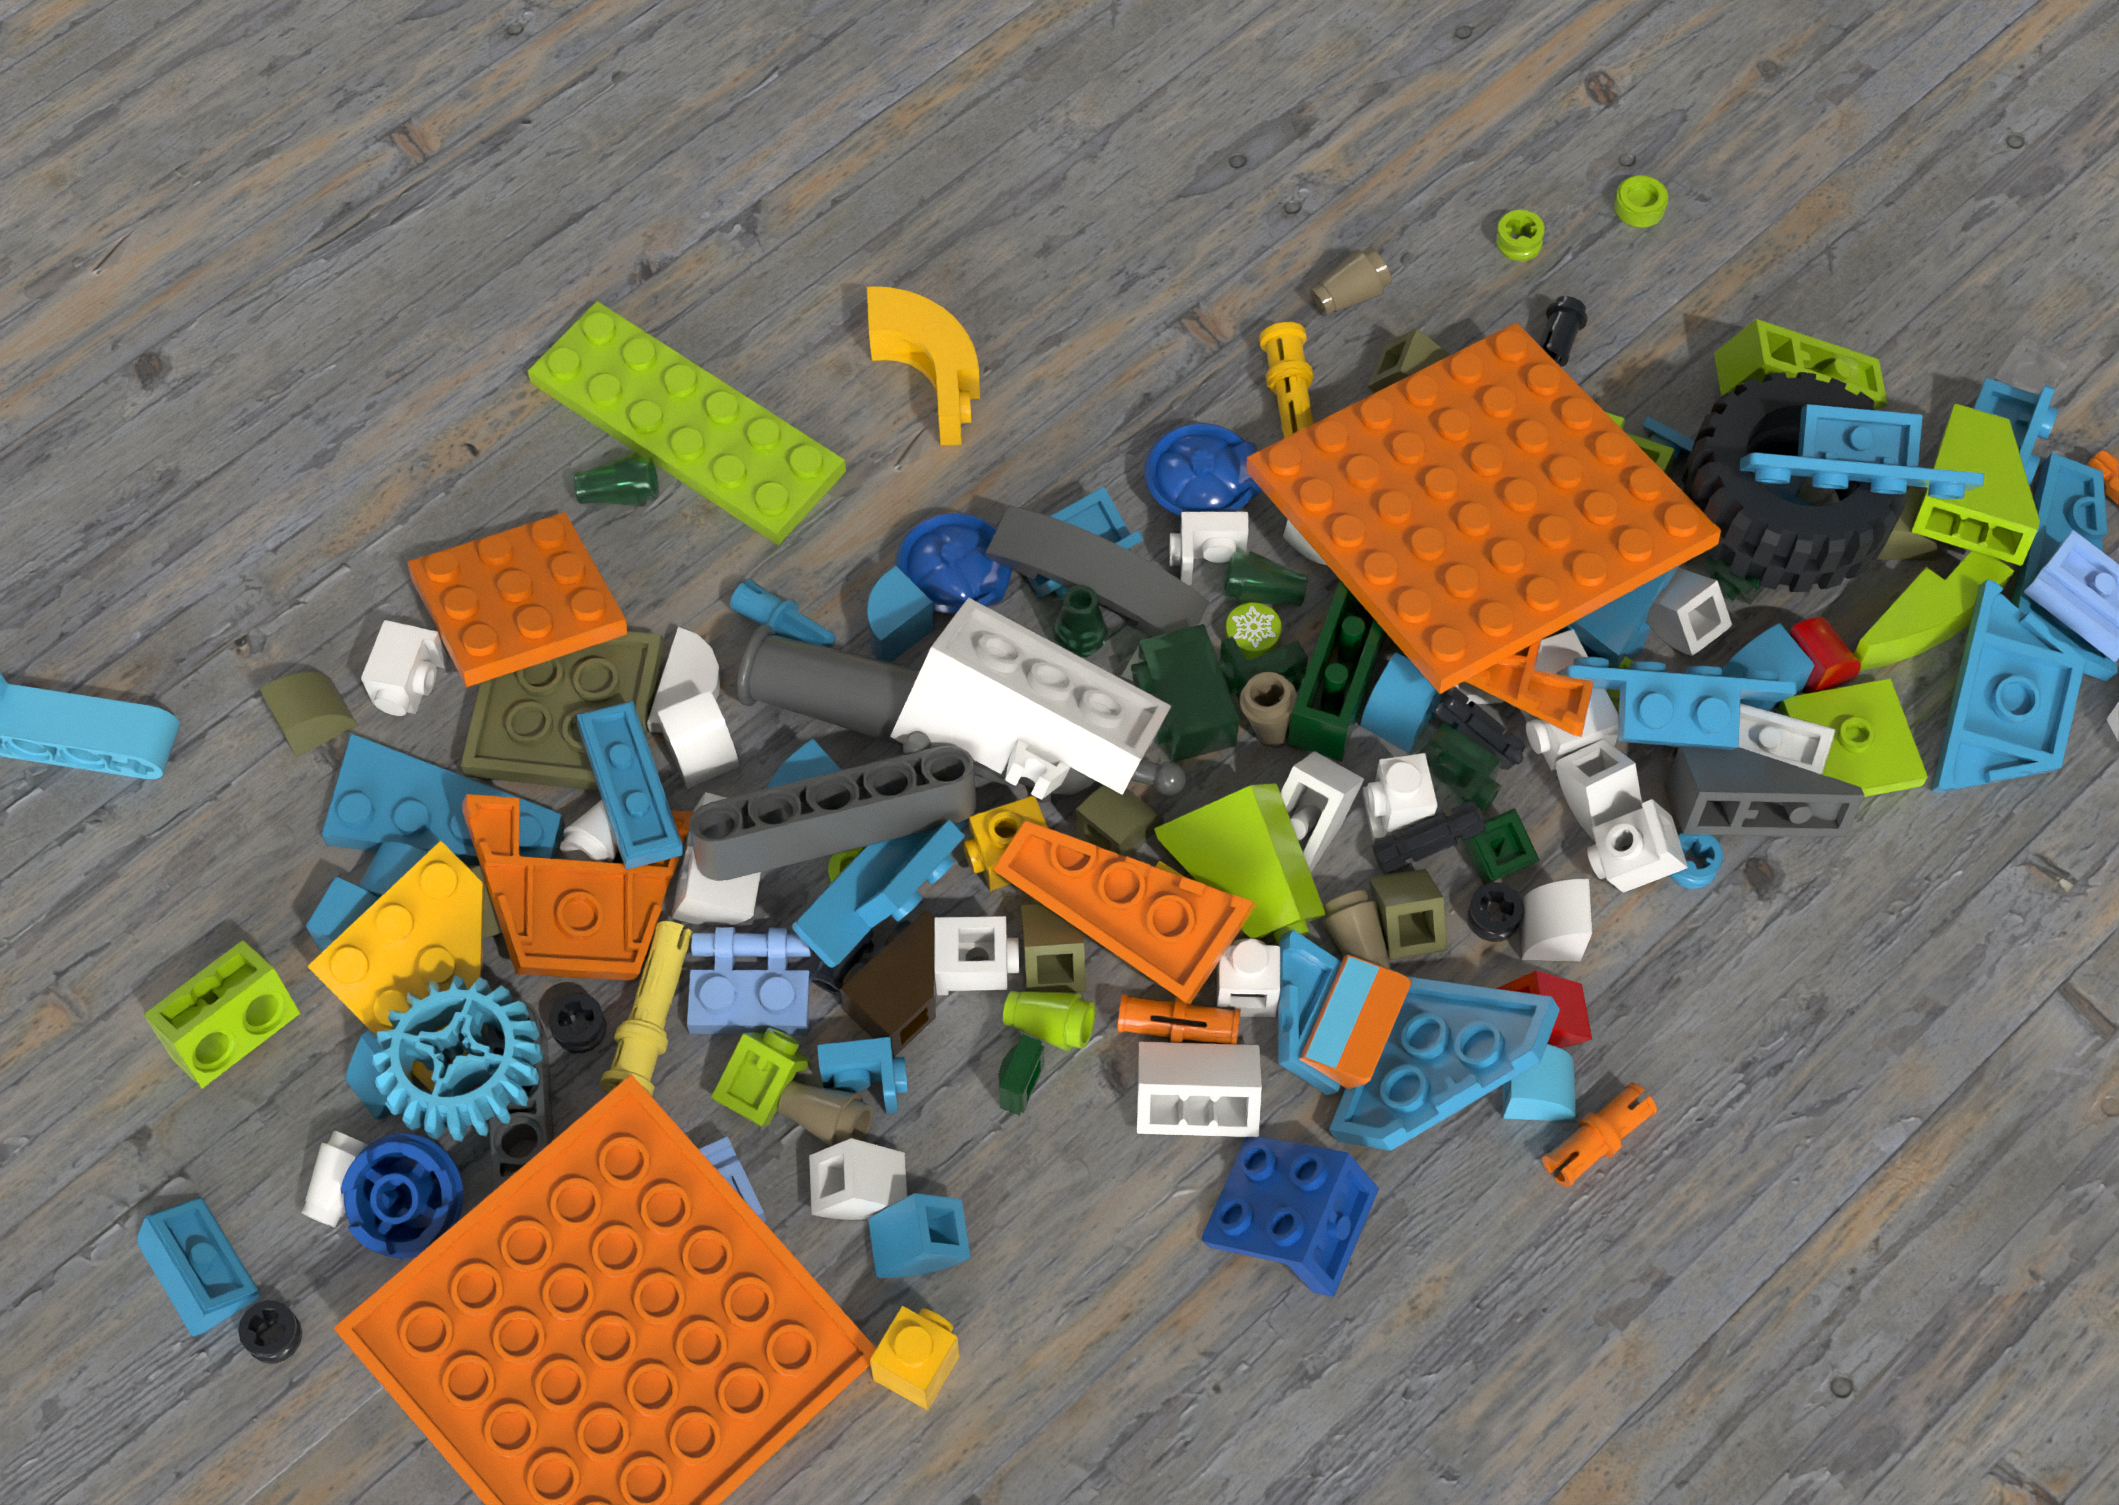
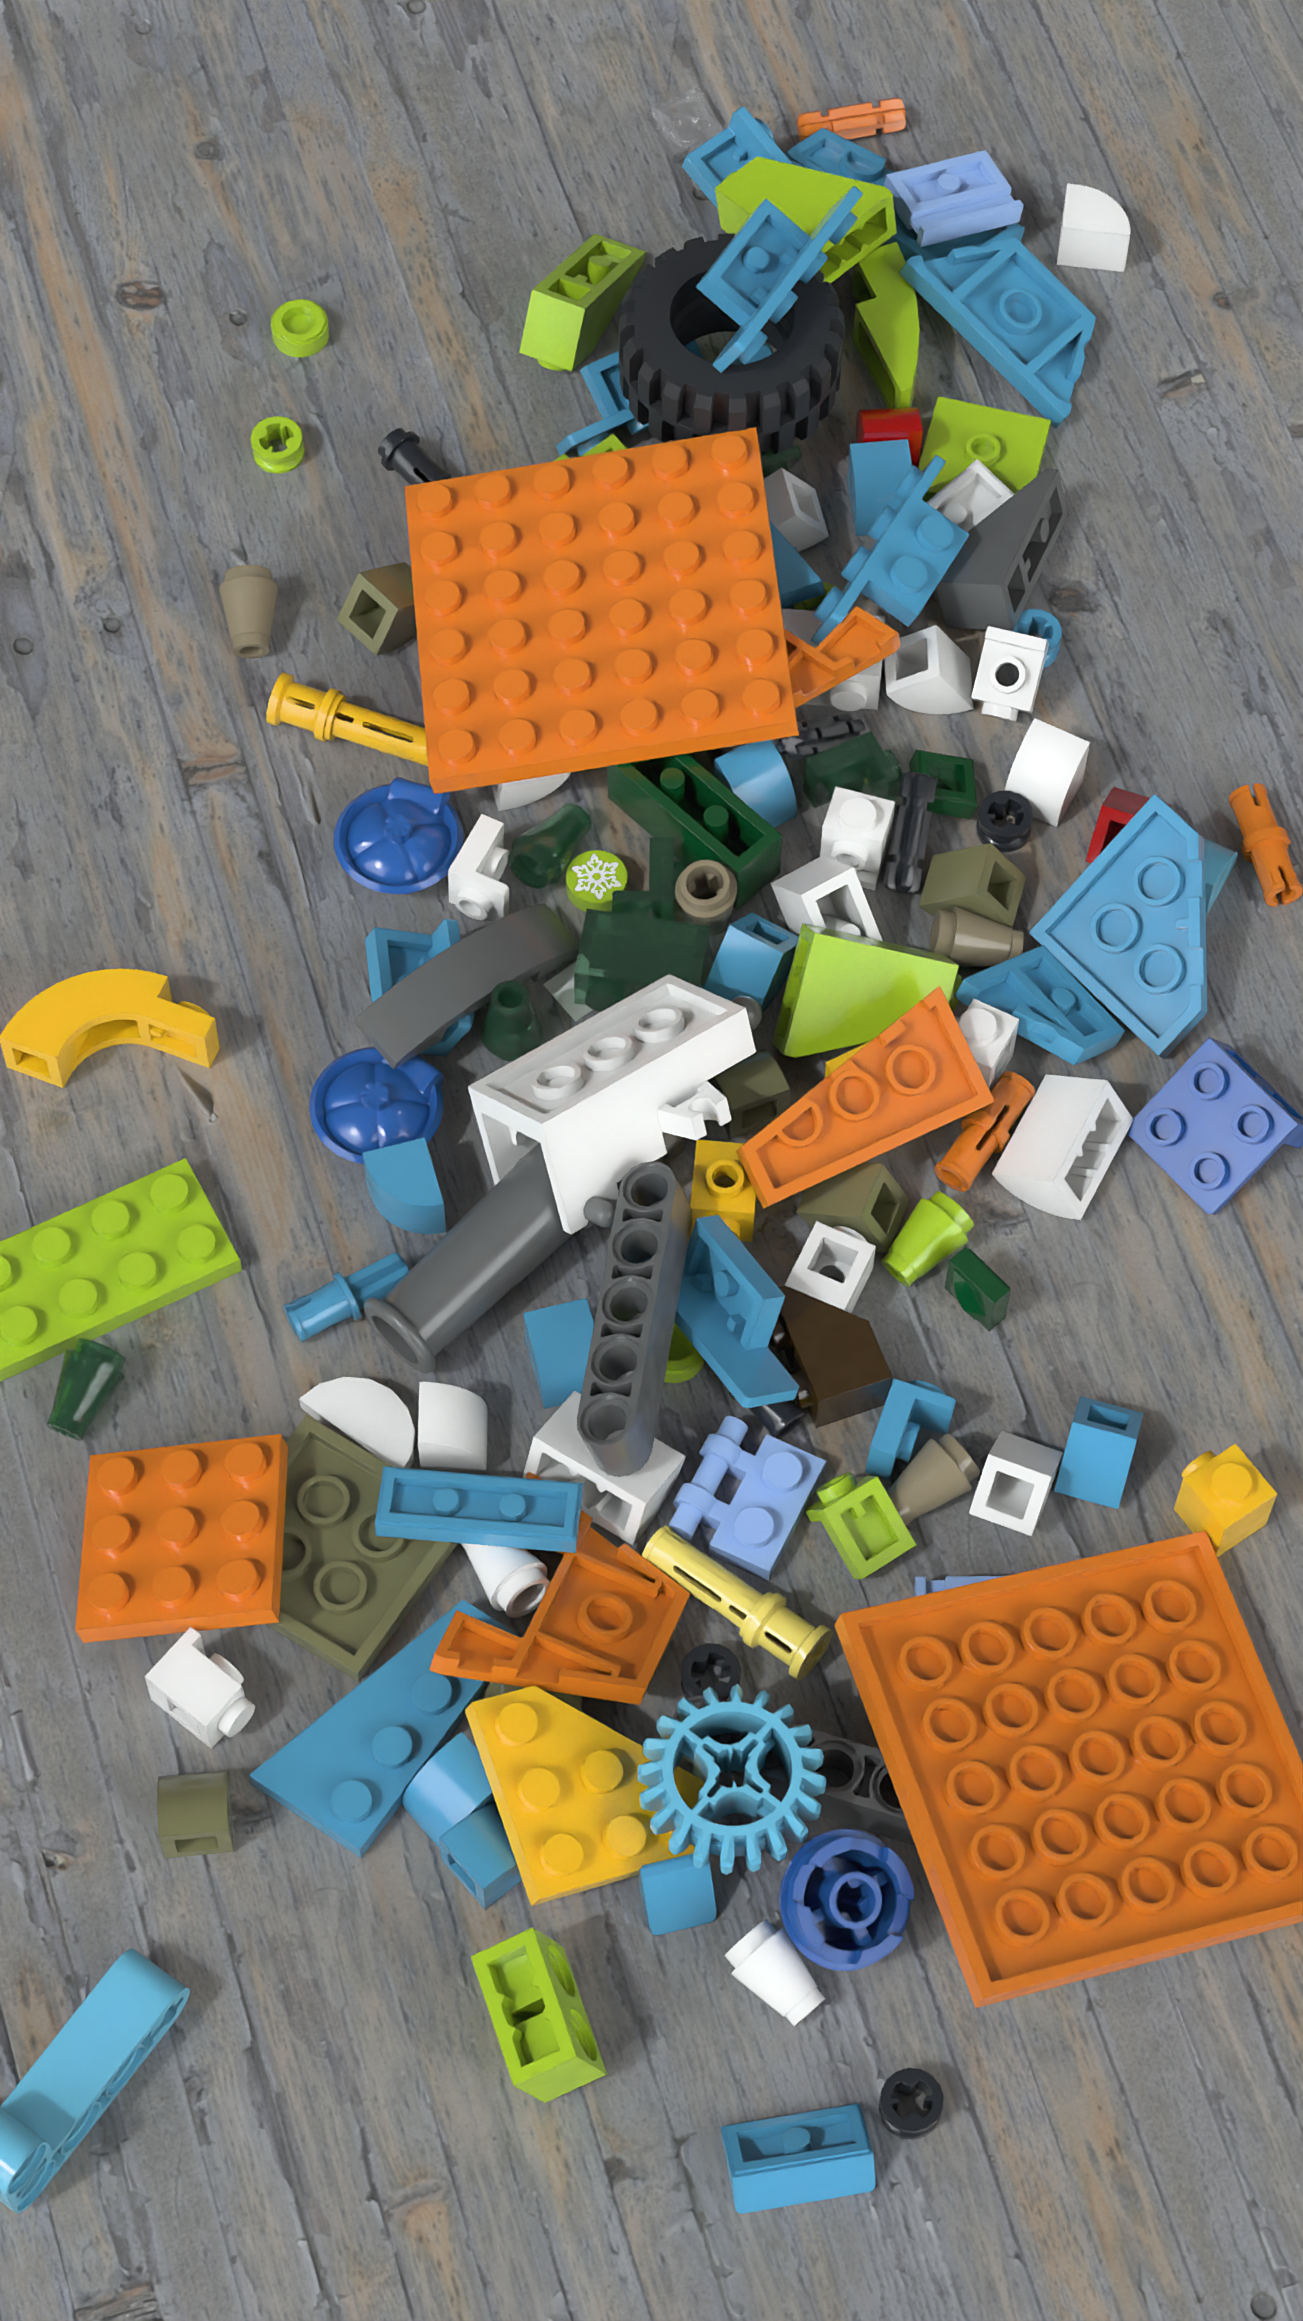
camera: 65 degrees left, 0 degrees up
(1234, 766) = (752, 960): none -> dark azure brick
(1355, 1021) = (1076, 974): slope -> none

